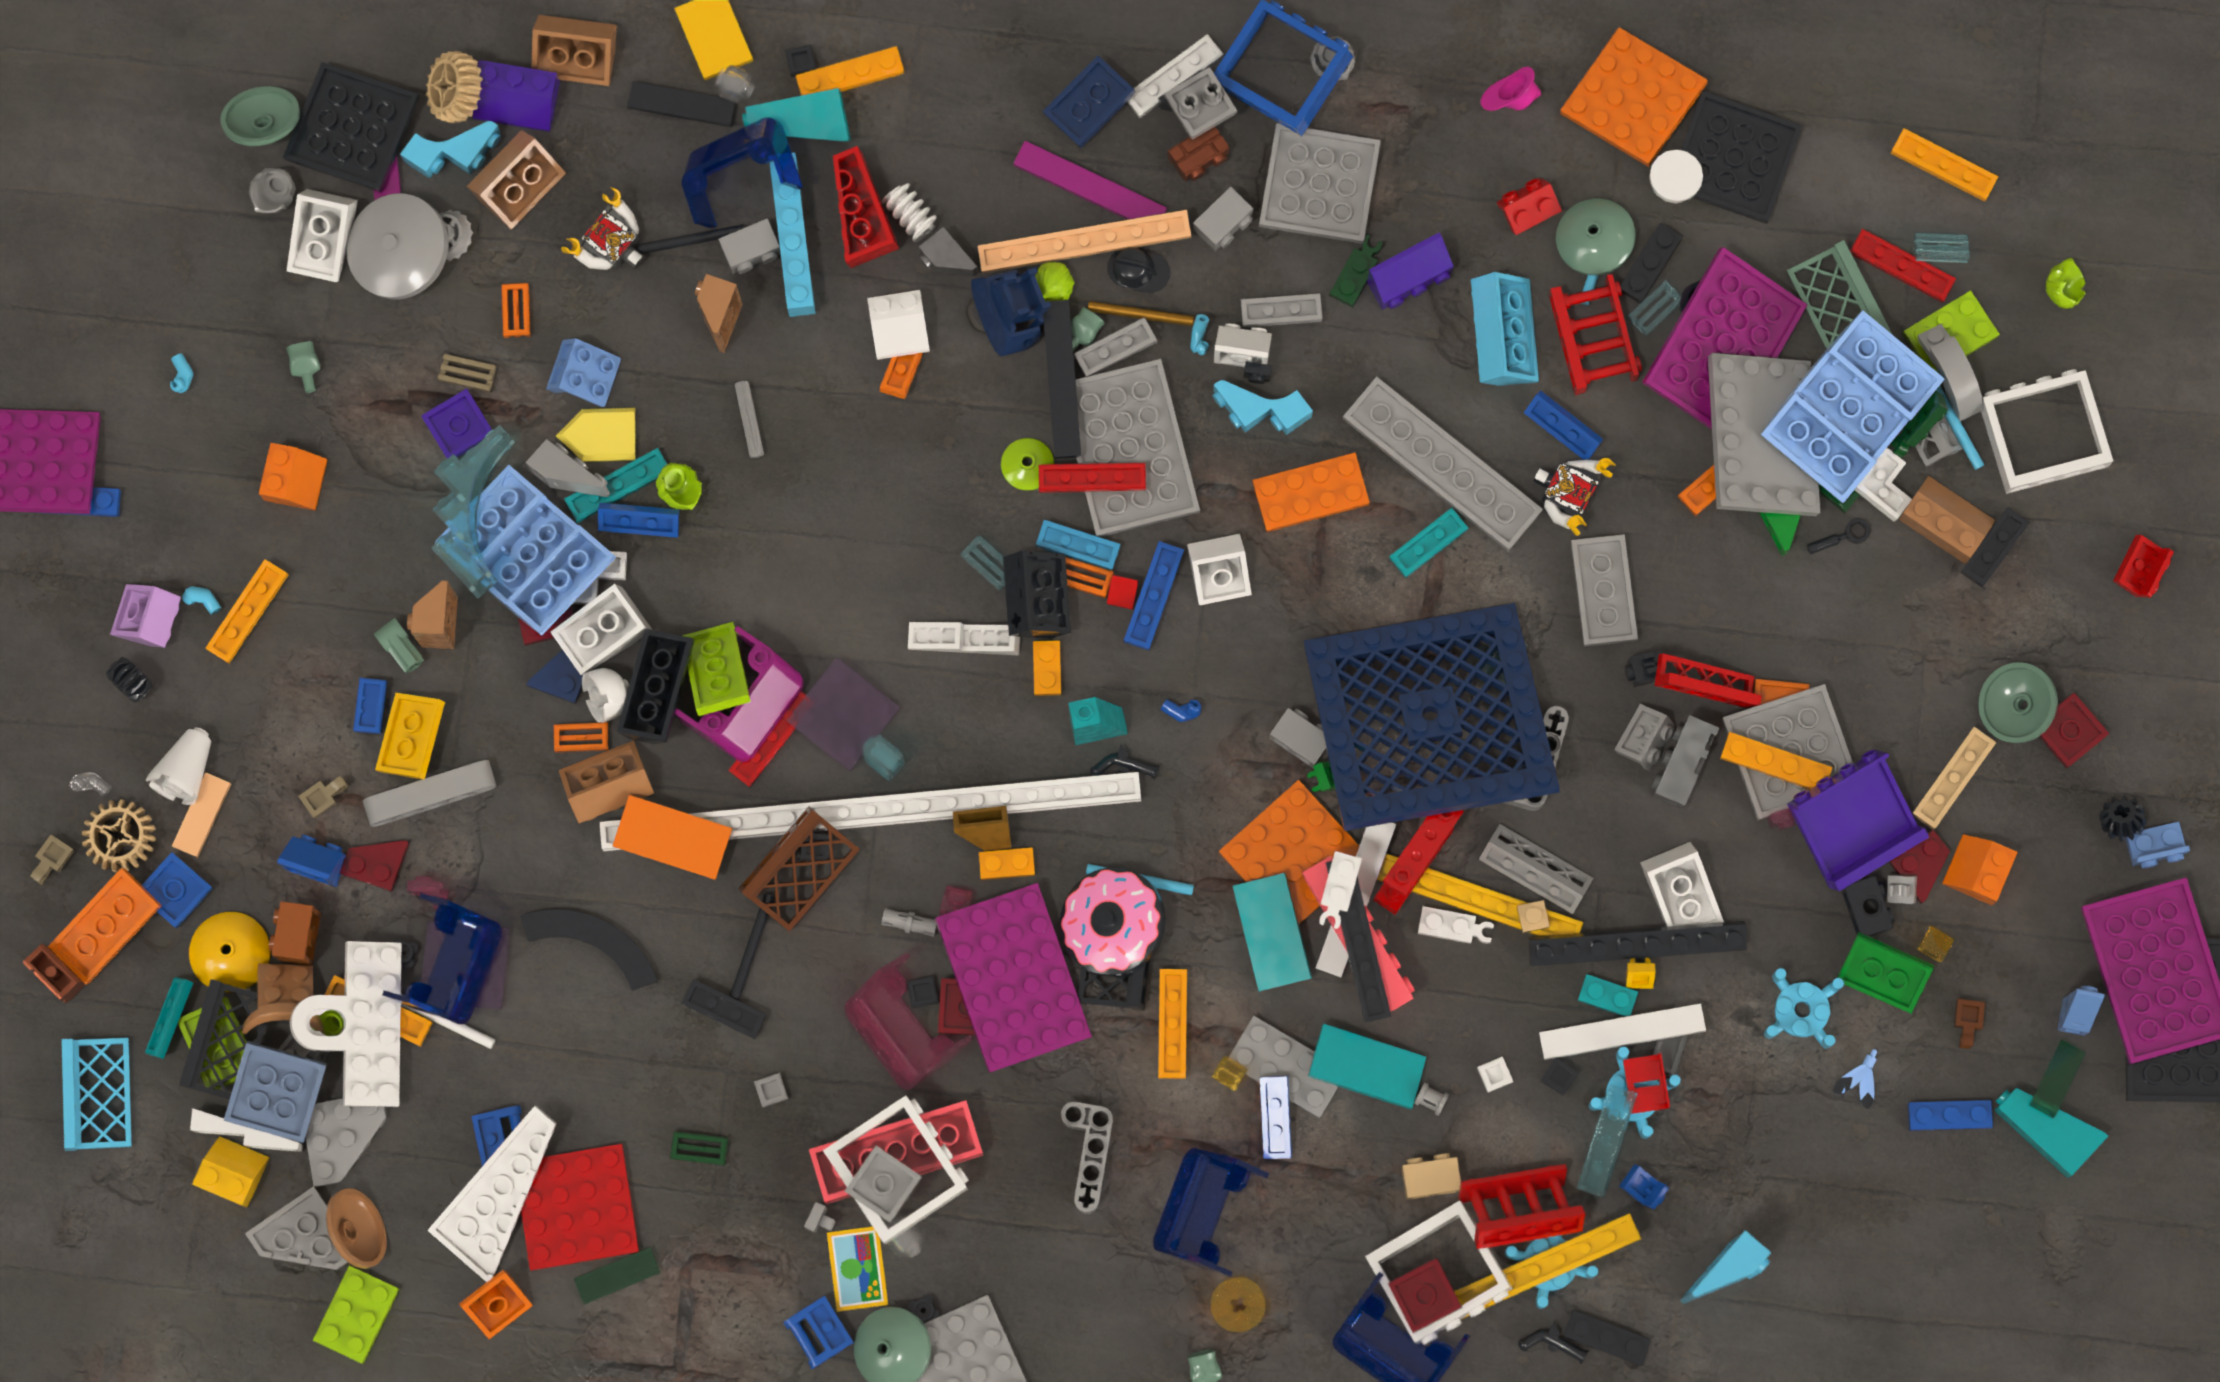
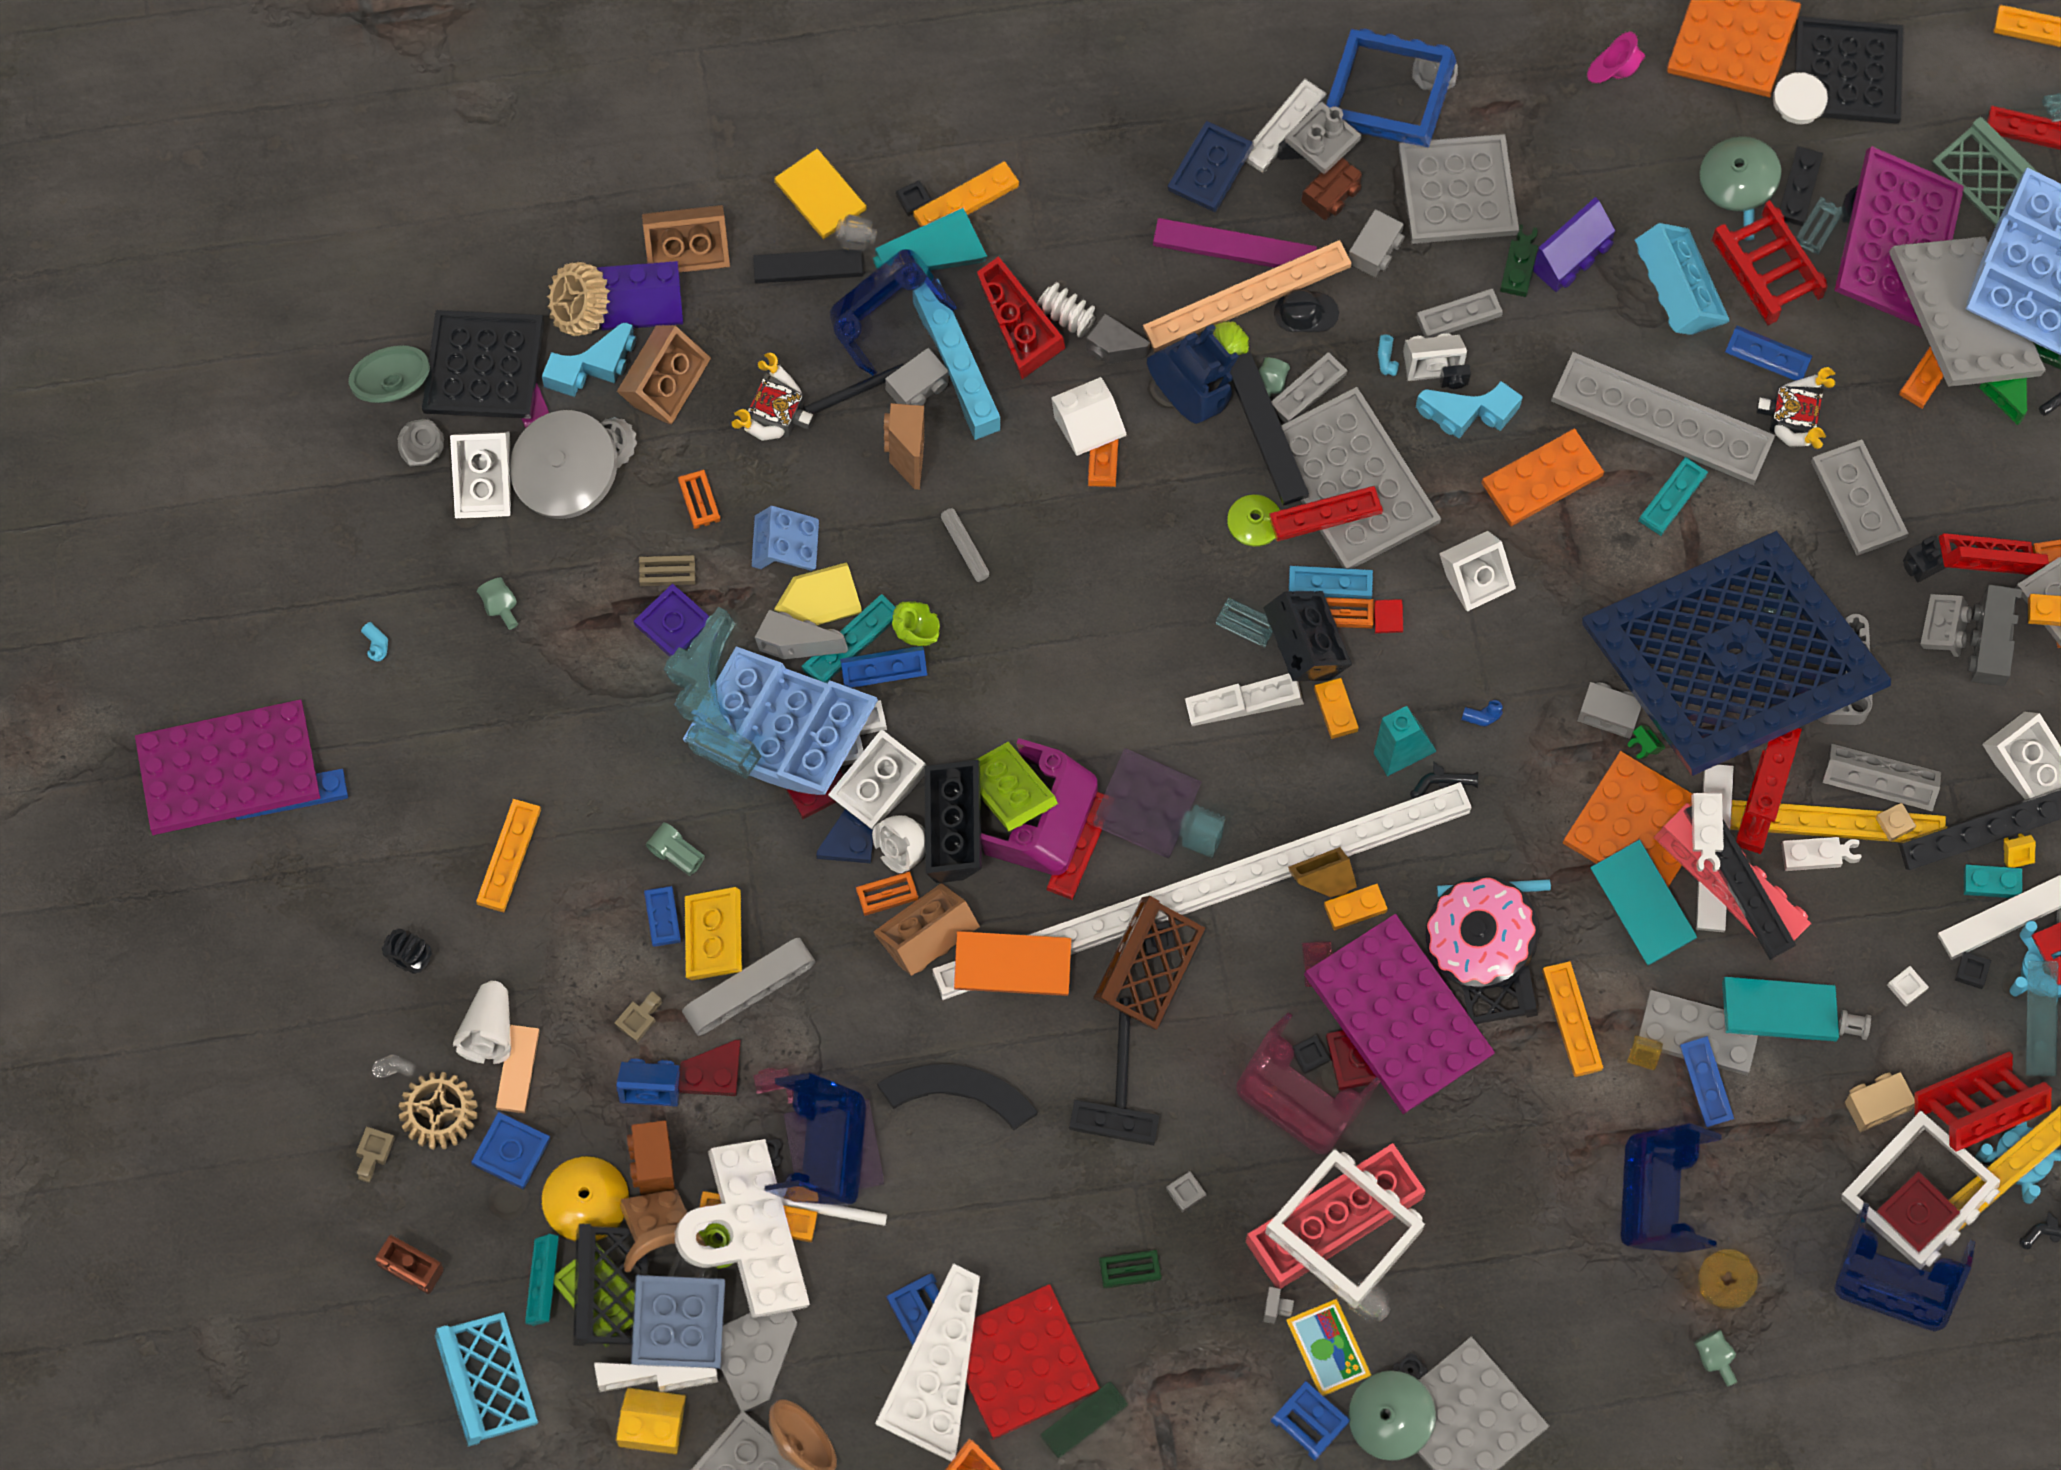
camera: 20 degrees left, 10 degrees down
(105, 926) = (450, 1202): orange plate -> none
(146, 615) = (405, 884): lavender slope -> none
(201, 595) = (460, 852): medium azure arm -> none
(292, 477) = (519, 712): orange slope -> none
(435, 618) = (707, 809): medium nougat slope -> none
(883, 1184) = (1340, 1241): light grey plate -> none
(909, 922) = (1276, 988): light grey pin -> none
(1089, 1159) = (1530, 1173): light grey beam -> none
(1140, 313) = (1316, 352): pearl gold bar -> none
(1153, 595) = (1420, 612): blue plate -> none
(1529, 205) = (1667, 160): red bracket -> none

